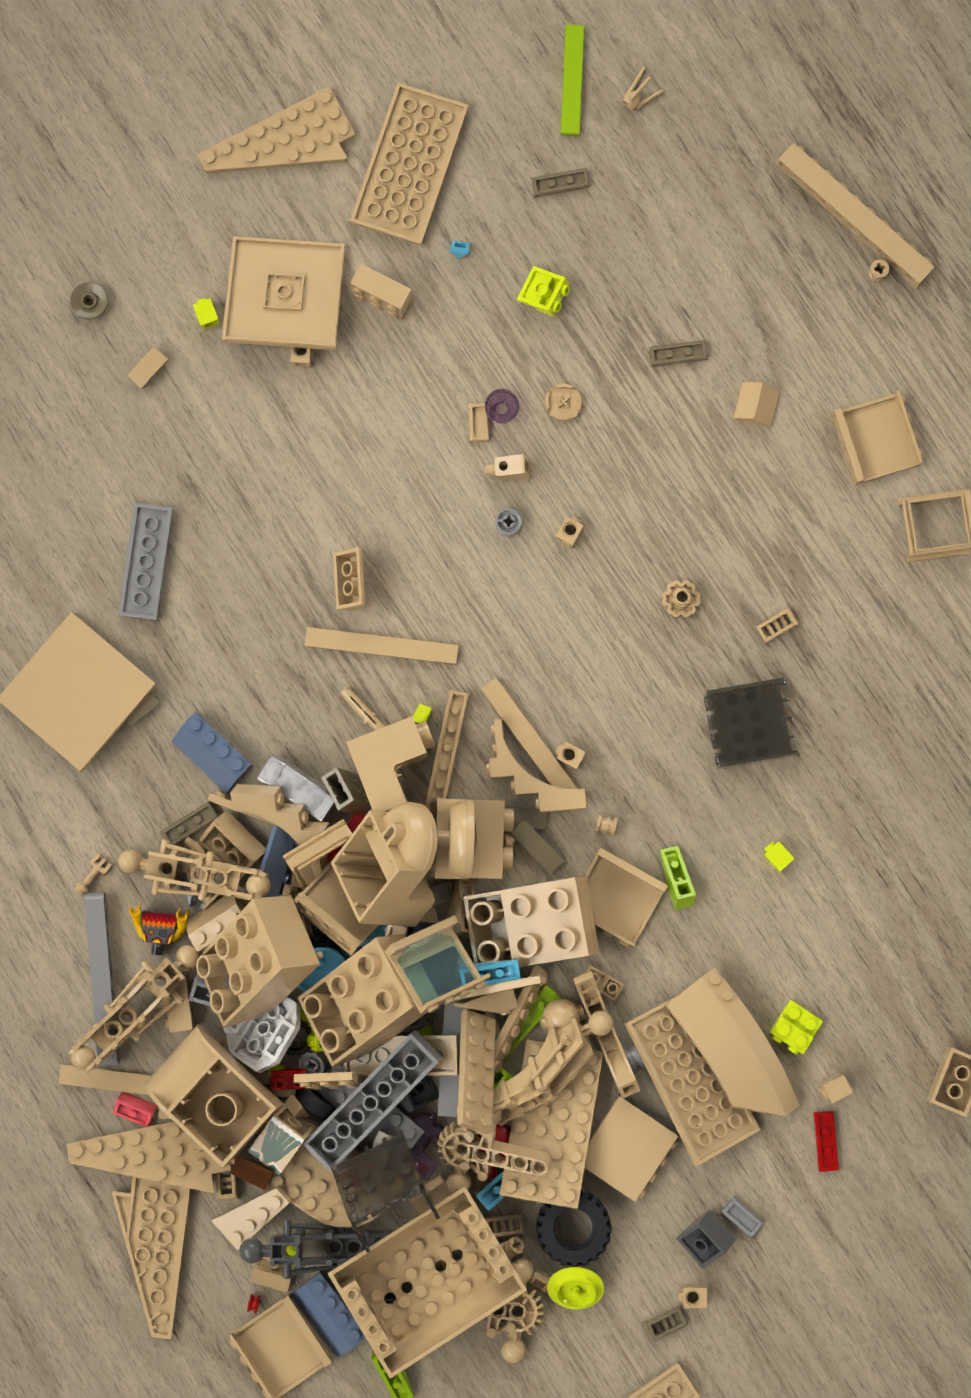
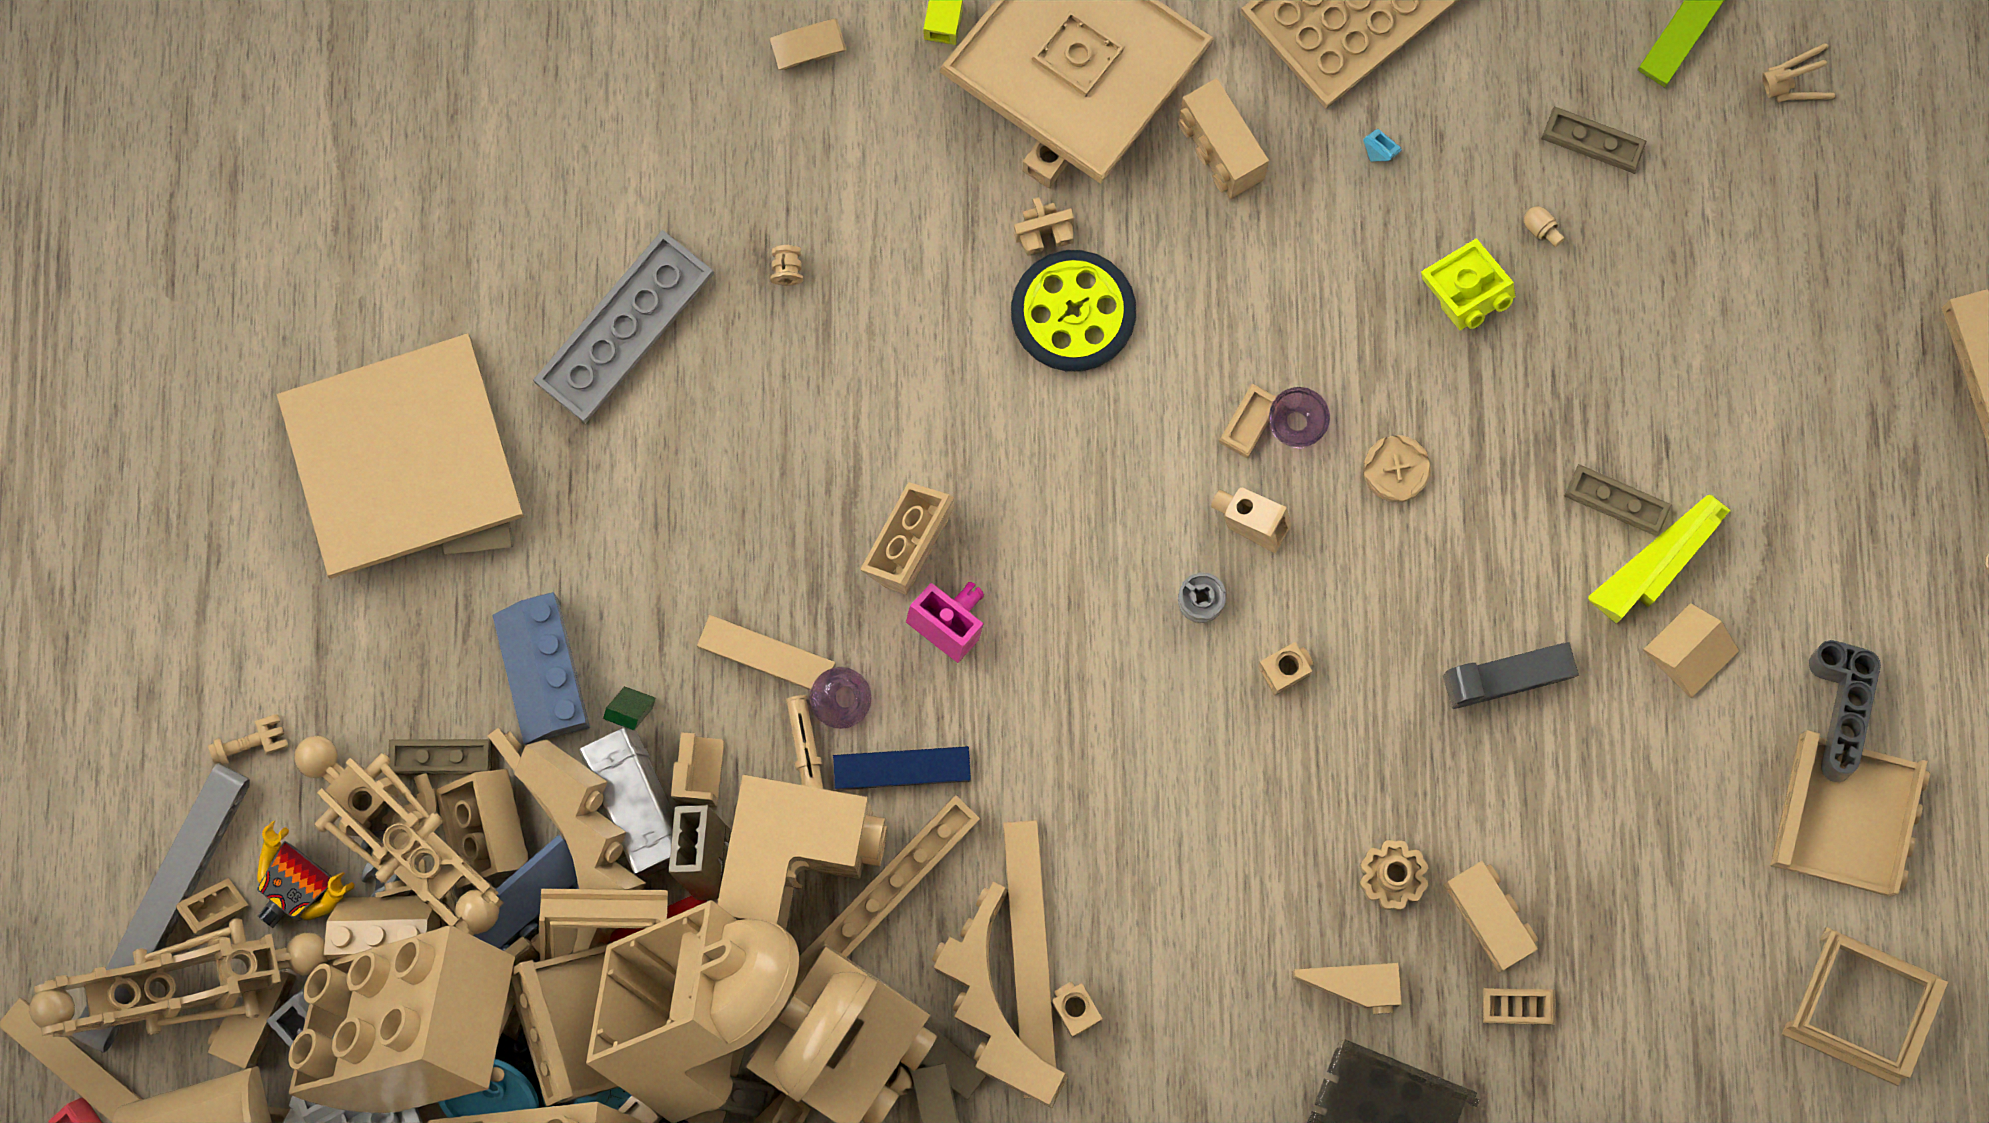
camera: 30 degrees right, 5 degrees down
(126, 963) = (212, 907): none -> tan slope
(206, 483) = (786, 265): none -> tan bush
(267, 744) = (629, 708): none -> dark green tile
(315, 394) = (1030, 231): none -> tan hips
(316, 678) = (762, 652): none -> tan tile
(319, 754) = (697, 771): none -> tan panel
(356, 679) = (824, 697): none -> piece
(369, 396) = (1080, 354): none -> wedge
(381, 645) = (895, 666): tan tile -> none
(393, 608) = (947, 620): none -> dark pink brick
(415, 692) = (901, 768): none -> dark blue tile
(422, 713) = (890, 806): neon yellow slope -> none
(561, 240) = (1543, 225): none -> tan cylinder
(678, 469) = (1511, 675): none -> dark grey beam
(698, 660) = (1362, 985): none -> tan slope
(716, 371) = (1660, 561): none -> neon yellow wedge
(738, 589) = (1491, 915): none -> tan brick
(846, 390) = (1844, 711): none -> dark grey beam

